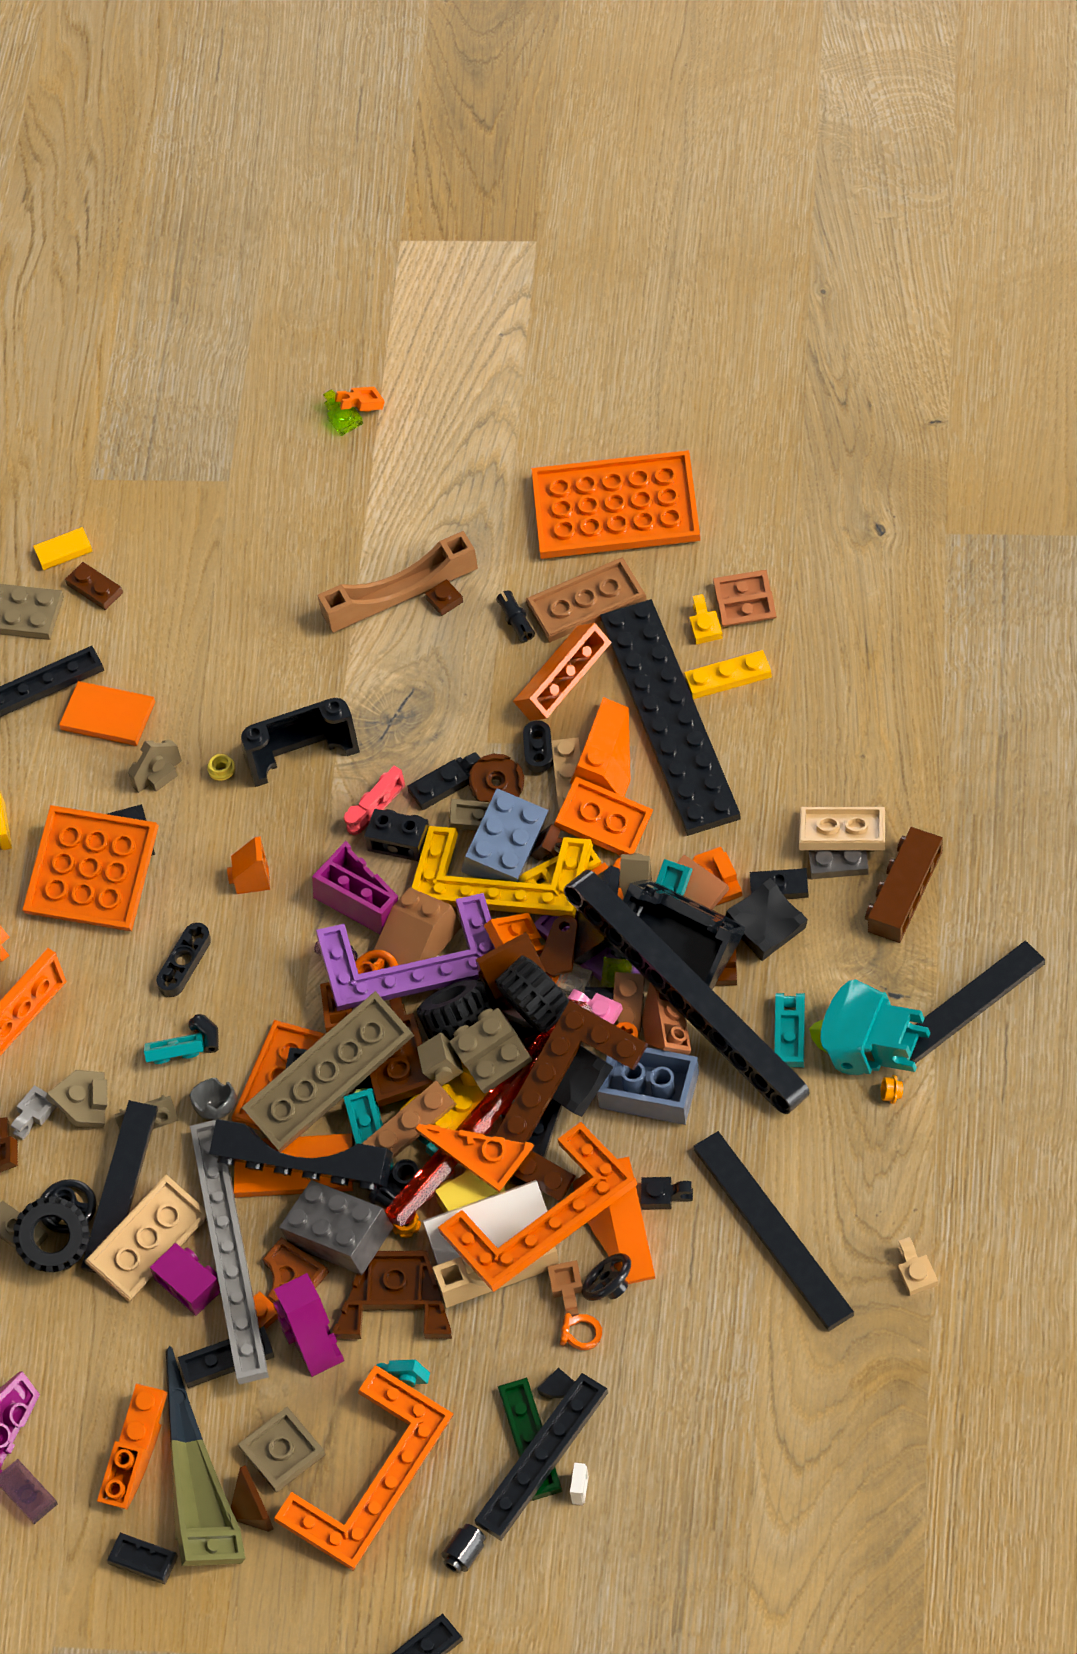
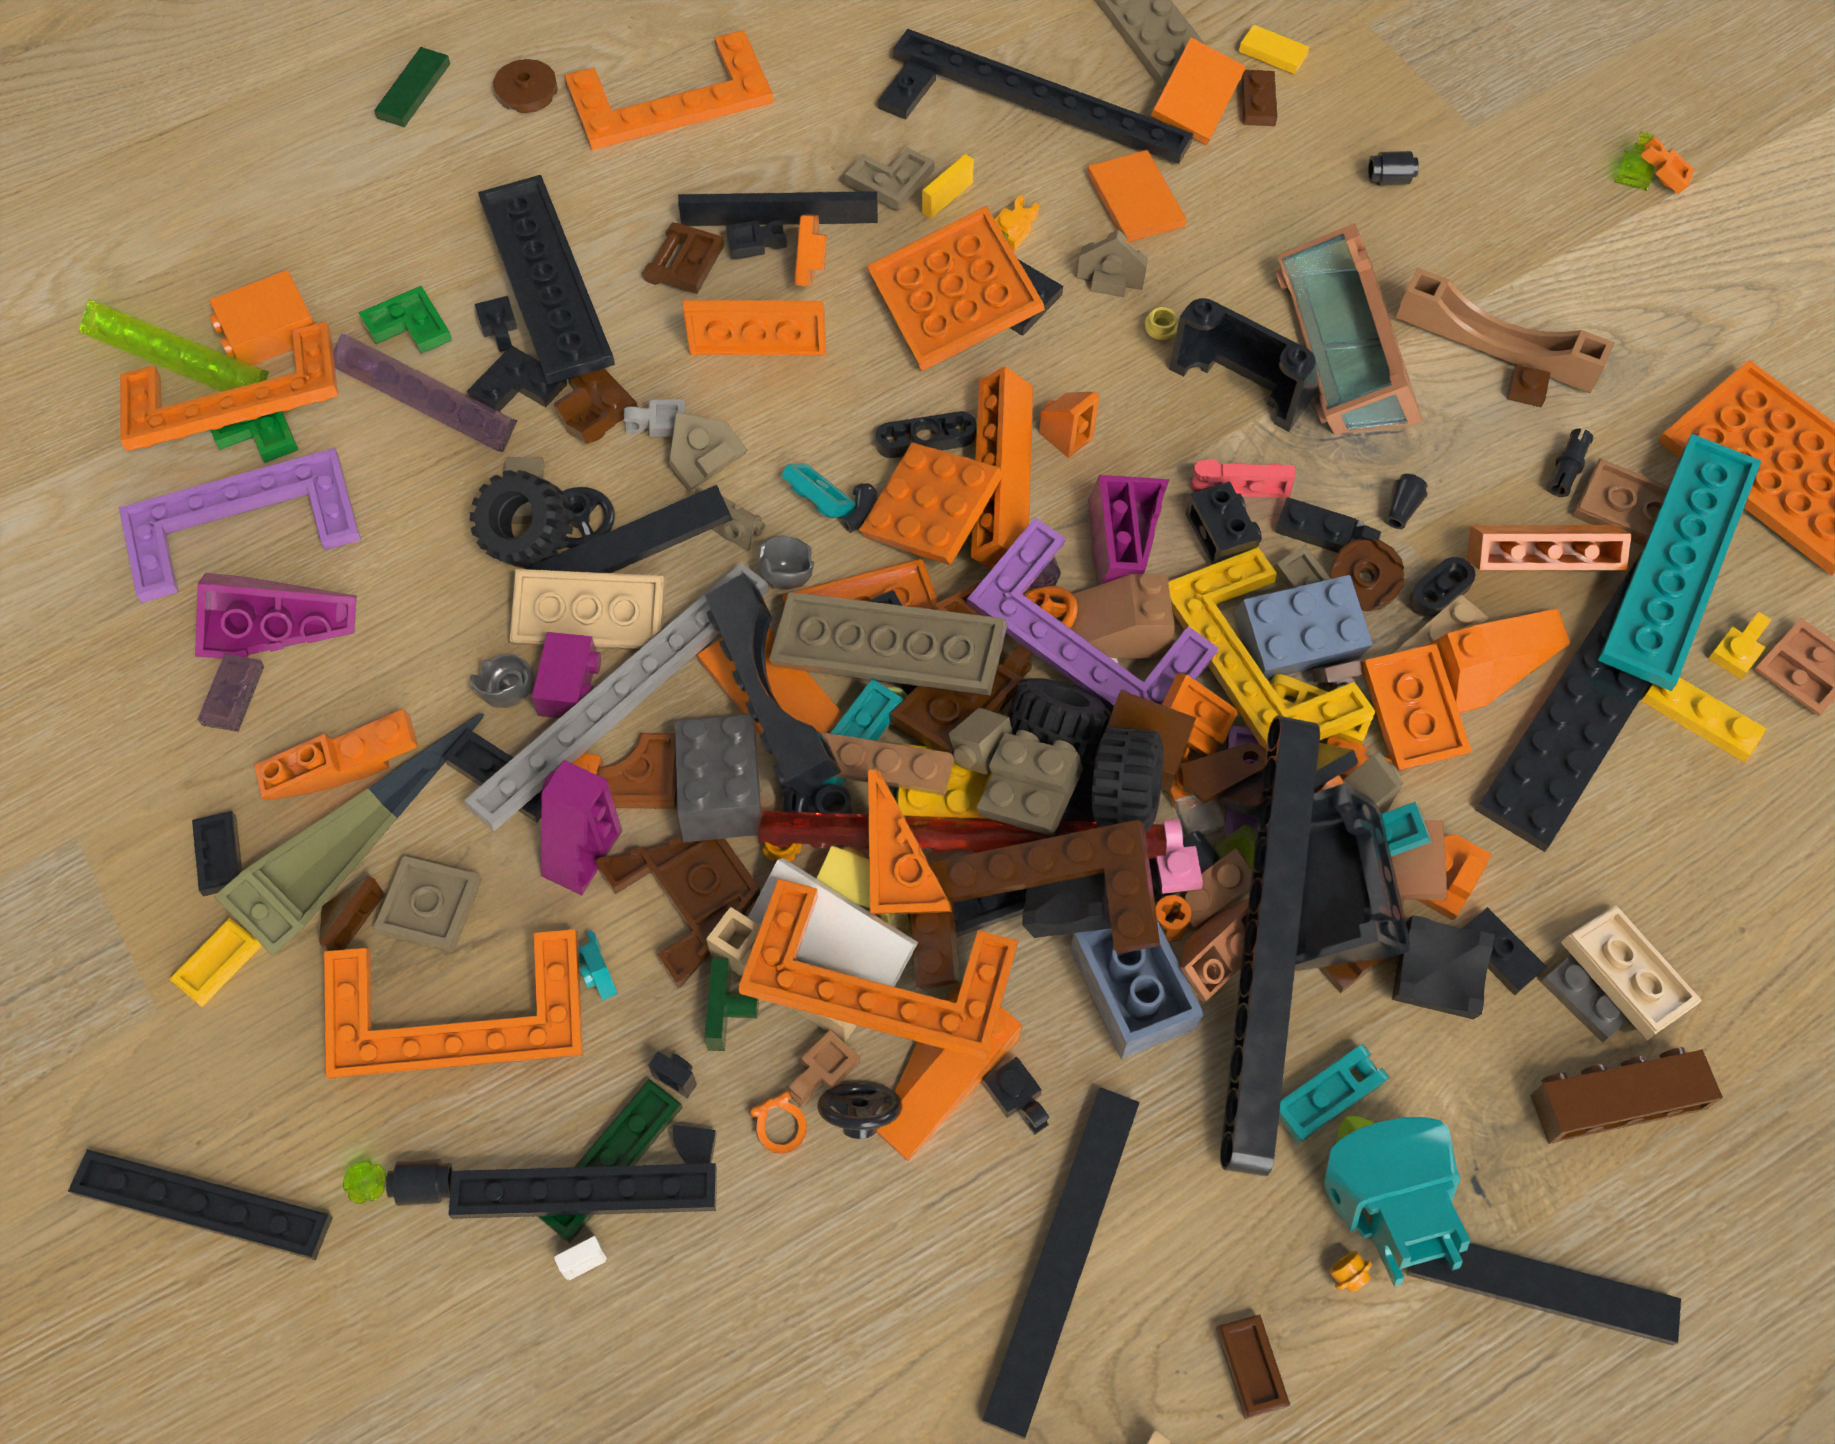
camera: 45 degrees right, 5 degrees up
(61, 617) = (1198, 90): none -> orange tile
(62, 795) = (1017, 222): none -> light orange plate
(159, 1316) = (503, 681): none -> flat silver hair
(218, 1600) = (215, 962): none -> yellow tile
(222, 551) = (1393, 168): none -> black brick
(244, 986) = (931, 503): none -> orange plate
(253, 930) = (1004, 442): none -> orange brick
(323, 667) = (1349, 334): none -> clear light blue windscreen
(433, 1576) = (354, 1177): none -> clear neon green plate
(464, 722) = (1406, 497): none -> black cone
(485, 1316) = (724, 1004): none -> dark green tile
(506, 1369) = (673, 1072): none -> black plate
(629, 610) = (1680, 562): none -> teal plate
(902, 1174) = (1252, 1366): none -> reddish brown tile

